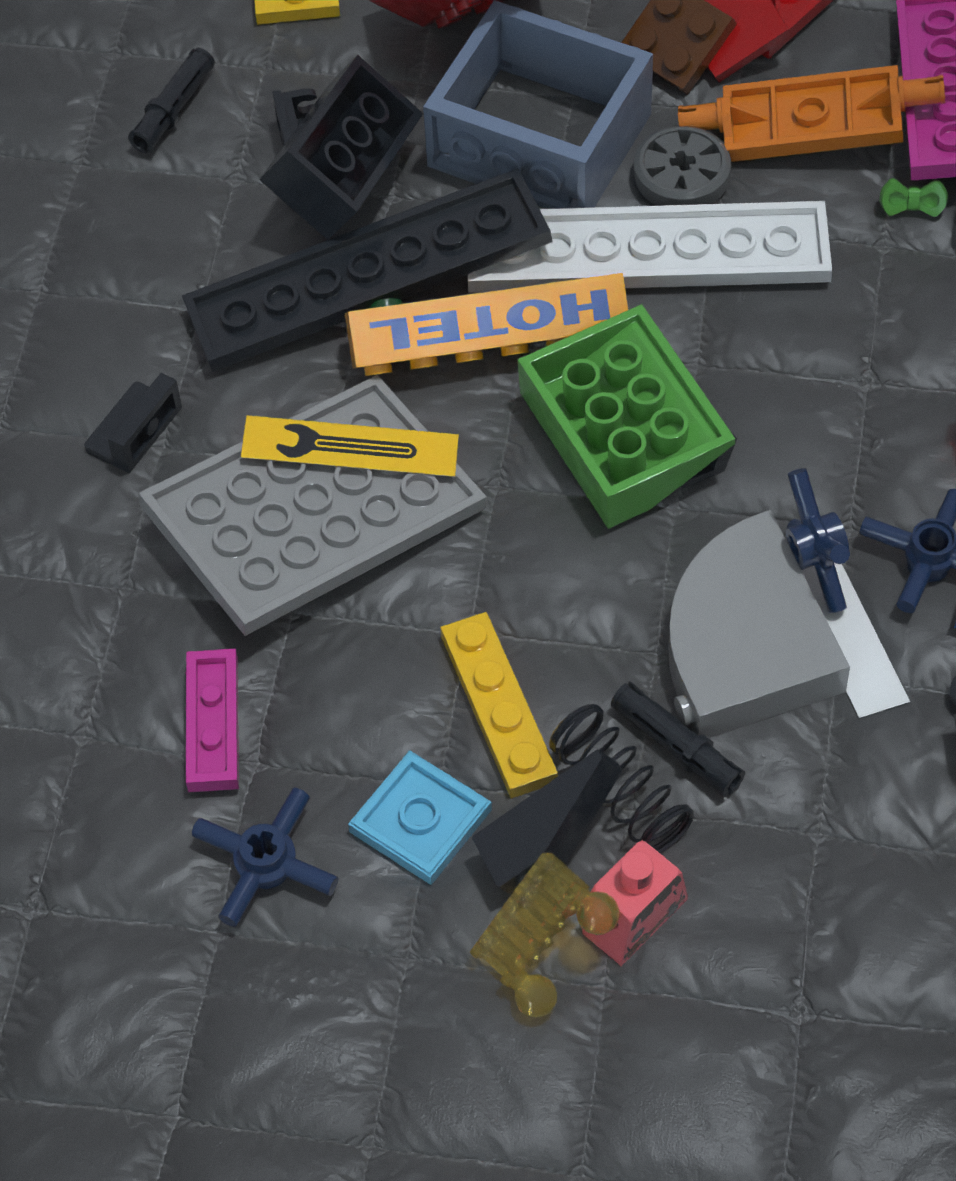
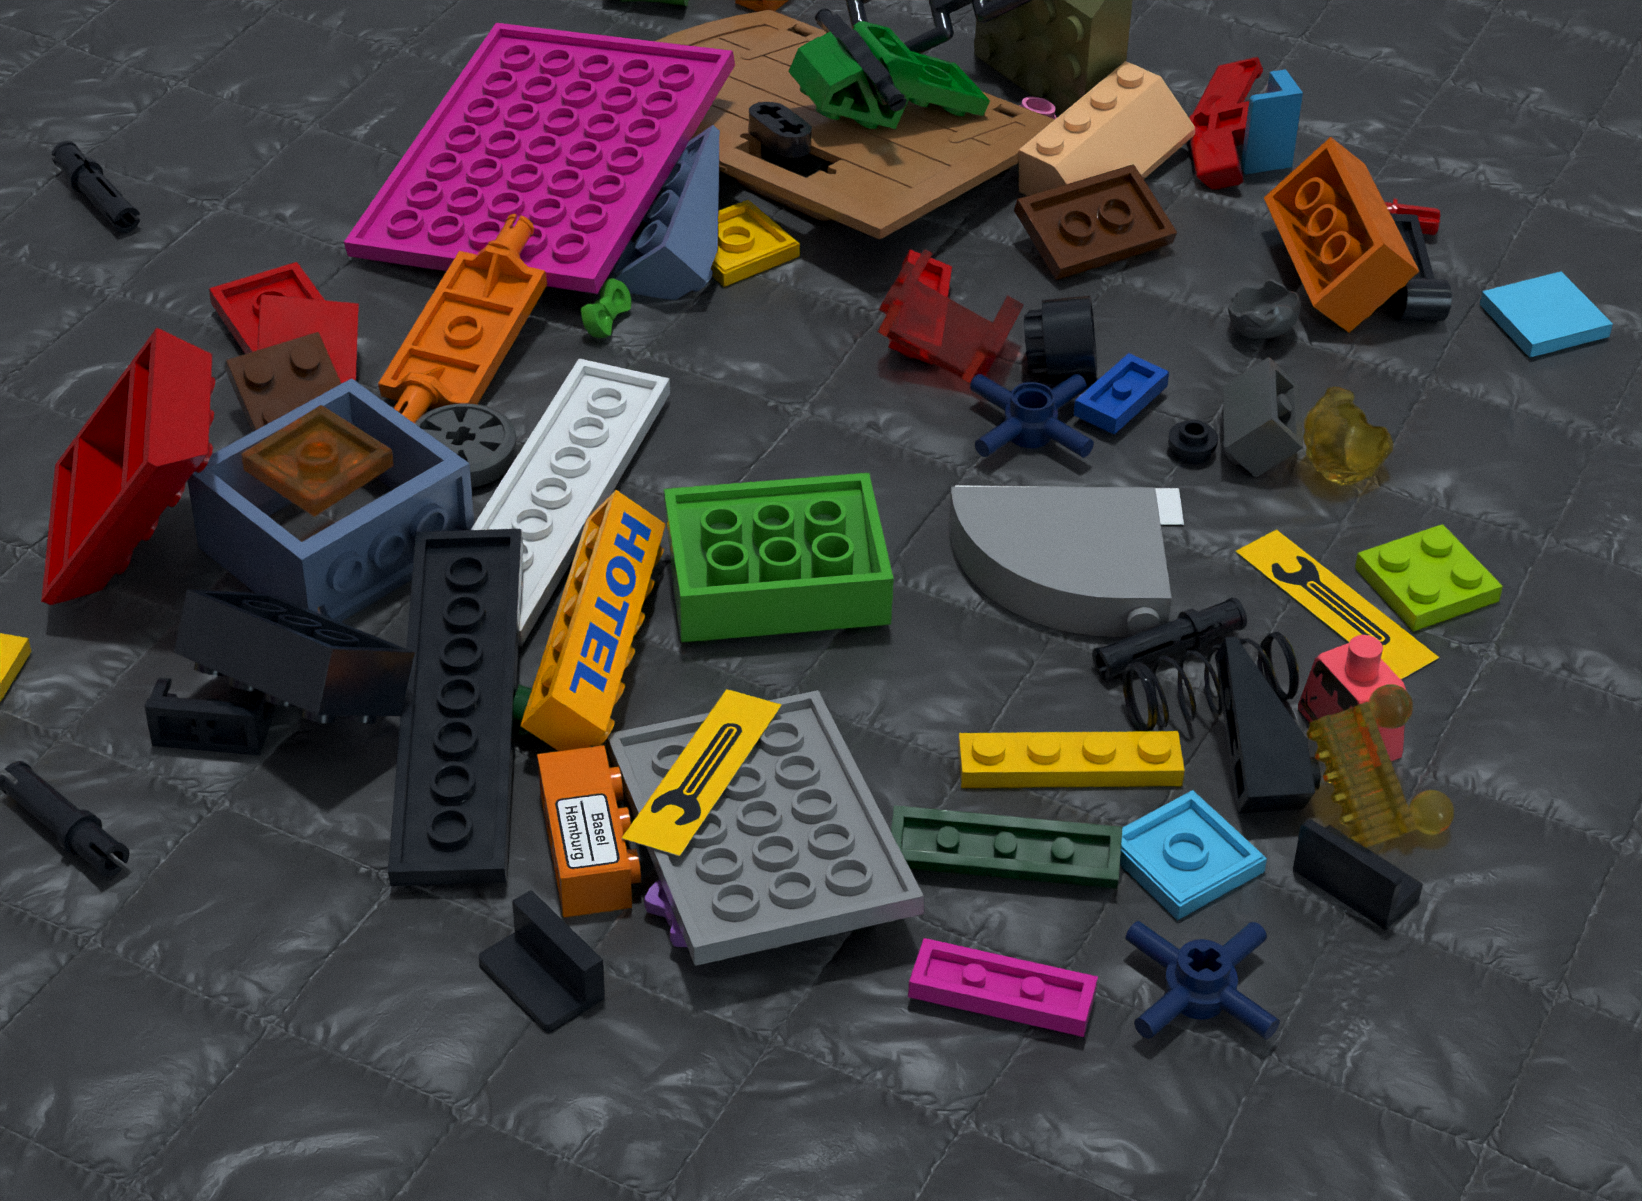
camera: 75 degrees left, 15 degrees down
(270, 388) = (587, 830): none -> orange brick
(363, 681) = (1008, 846): none -> dark green plate
(438, 951) = (1354, 874): none -> black panel
(528, 68) = (317, 460): none -> clear orange plate
(805, 870) = (1334, 601): none -> yellow sticker
(817, 540) = (1011, 453): dark blue bar -> none
(876, 938) = (1428, 577): none -> lime plate

